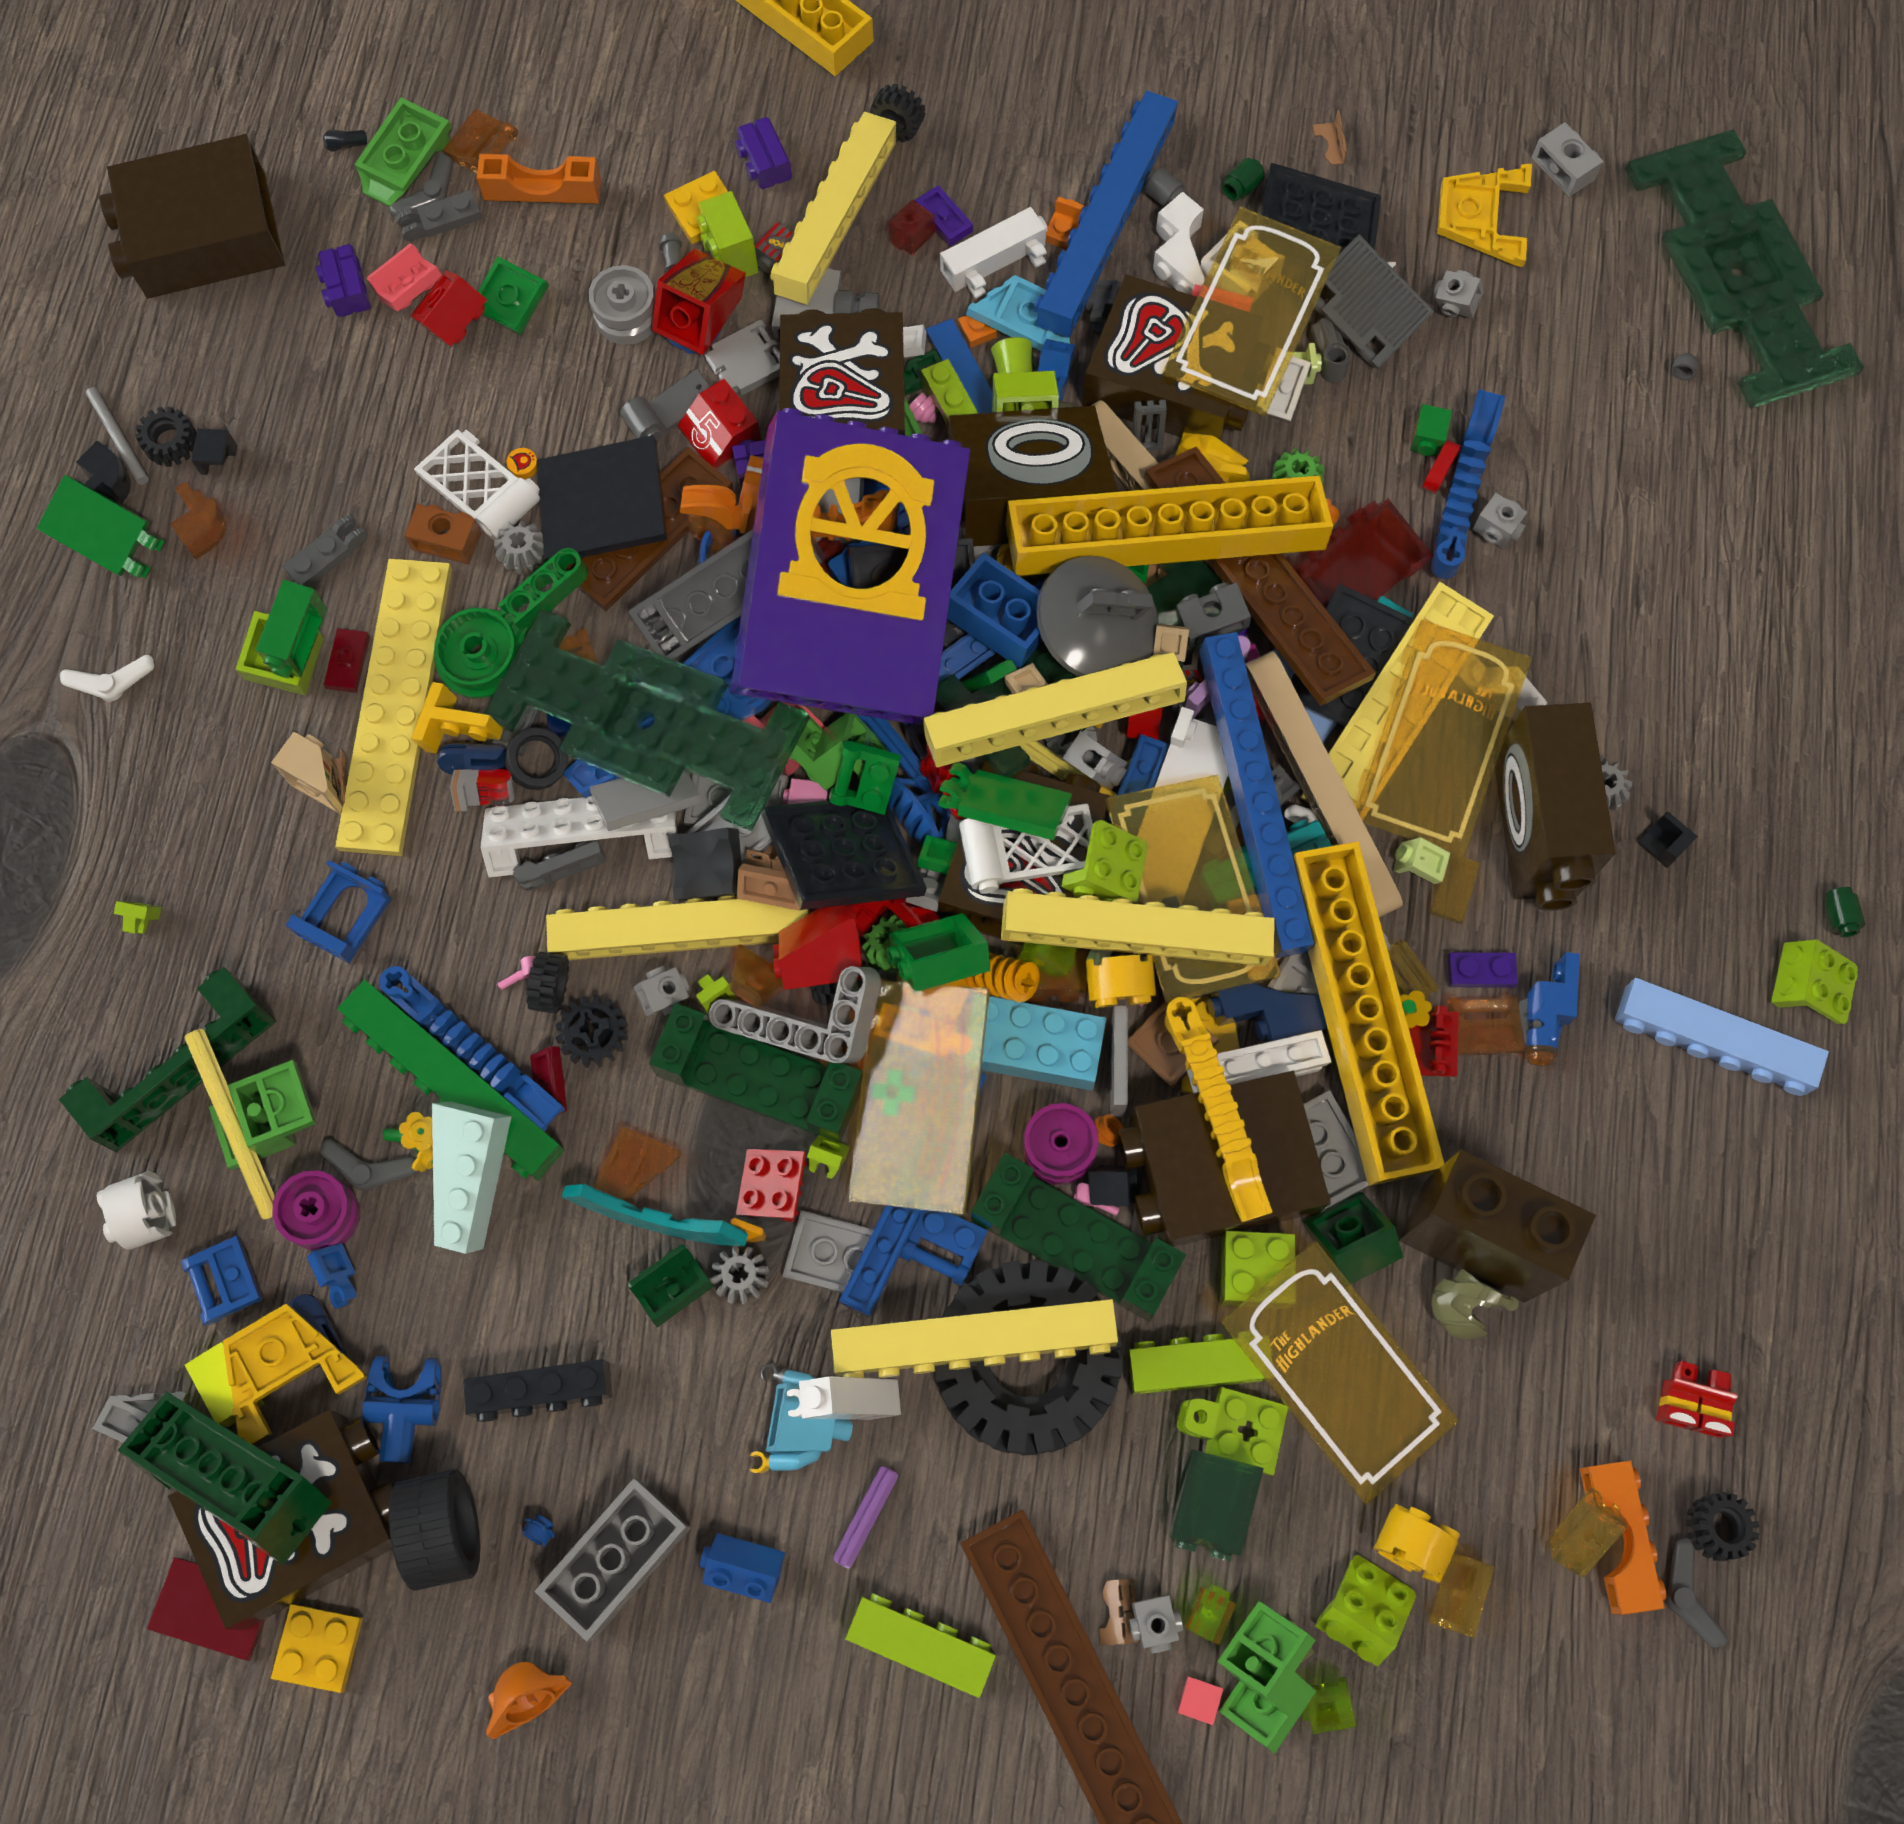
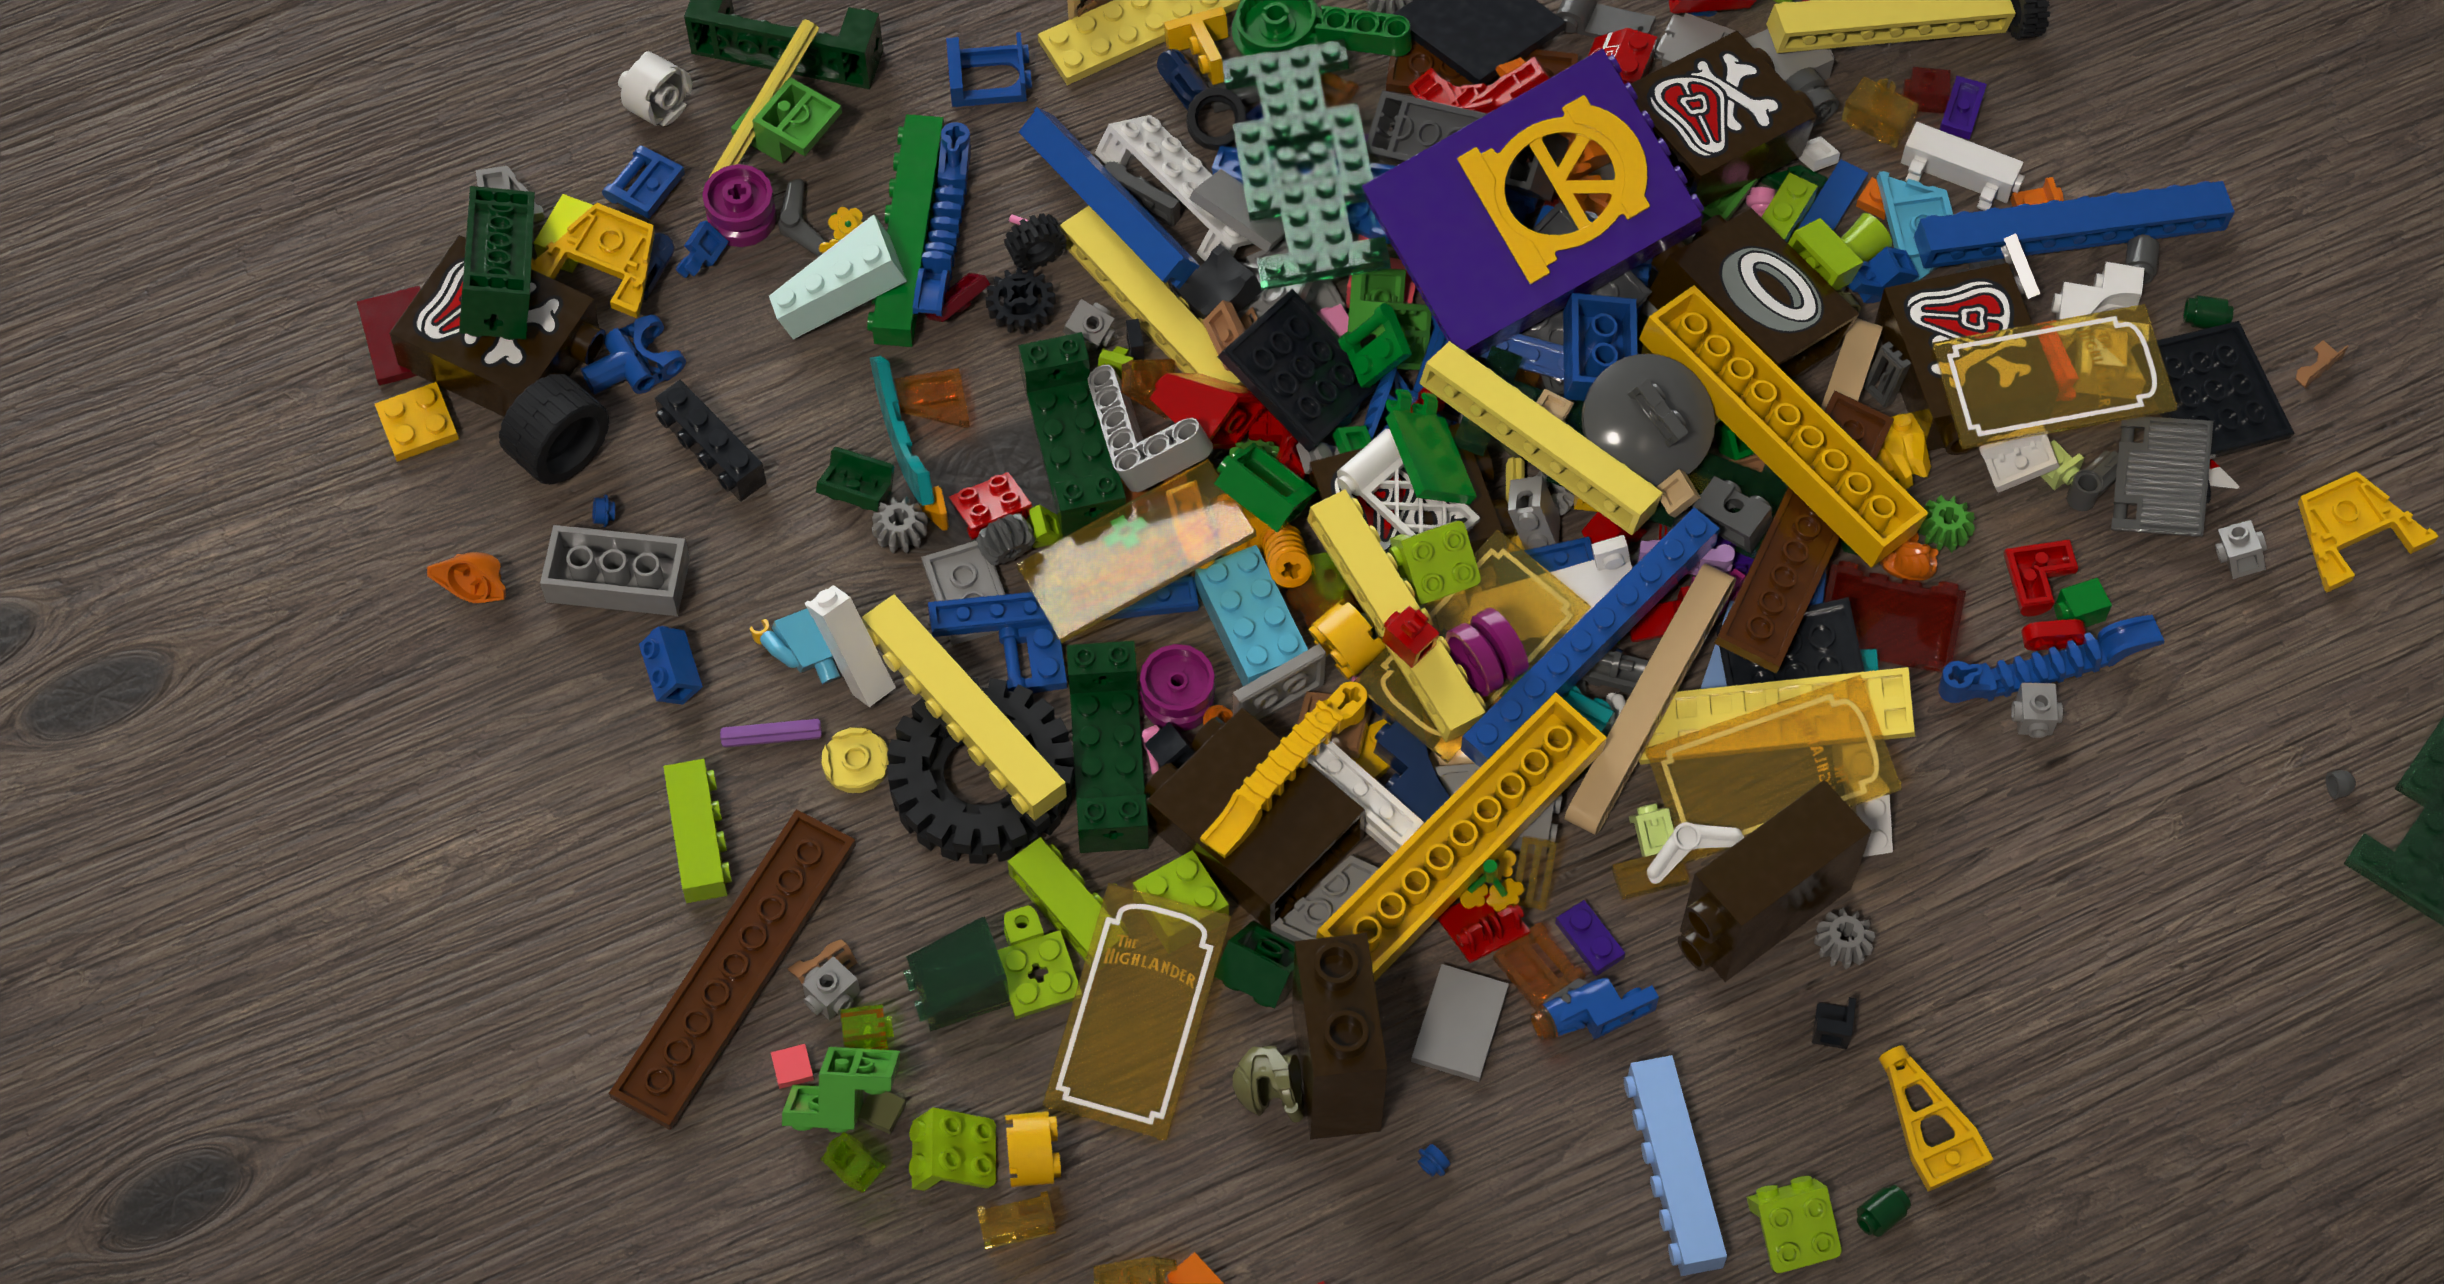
camera: 55 degrees right, 10 degrees down
(481, 788) = (1161, 97): leg -> none
(552, 895) = (1108, 198): none -> blue tile
(693, 546) = (1479, 96): none -> red tile
(701, 963) = (1134, 339): none -> black tile
(822, 1195) = (1005, 539): none -> dark grey gear
(906, 272) = (1880, 111): none -> clear yellow brick
(939, 1458) = (855, 760): none -> light yellow tile
(989, 675) = (1543, 382): green tile -> none
(1121, 264) = (2014, 254): none -> wing
(1180, 931) = (1410, 635): none -> red brick
(1225, 879) = (1487, 651): none -> magenta wheel
(1377, 445) = (2030, 569): none -> red brick
(1456, 839) = (1688, 838): none -> white piece
(1495, 1117) = (1460, 1022): none -> light grey tile
(1607, 1219) = (1433, 1161): none -> blue plate
(1828, 829) = (1949, 1159): none -> yellow plate

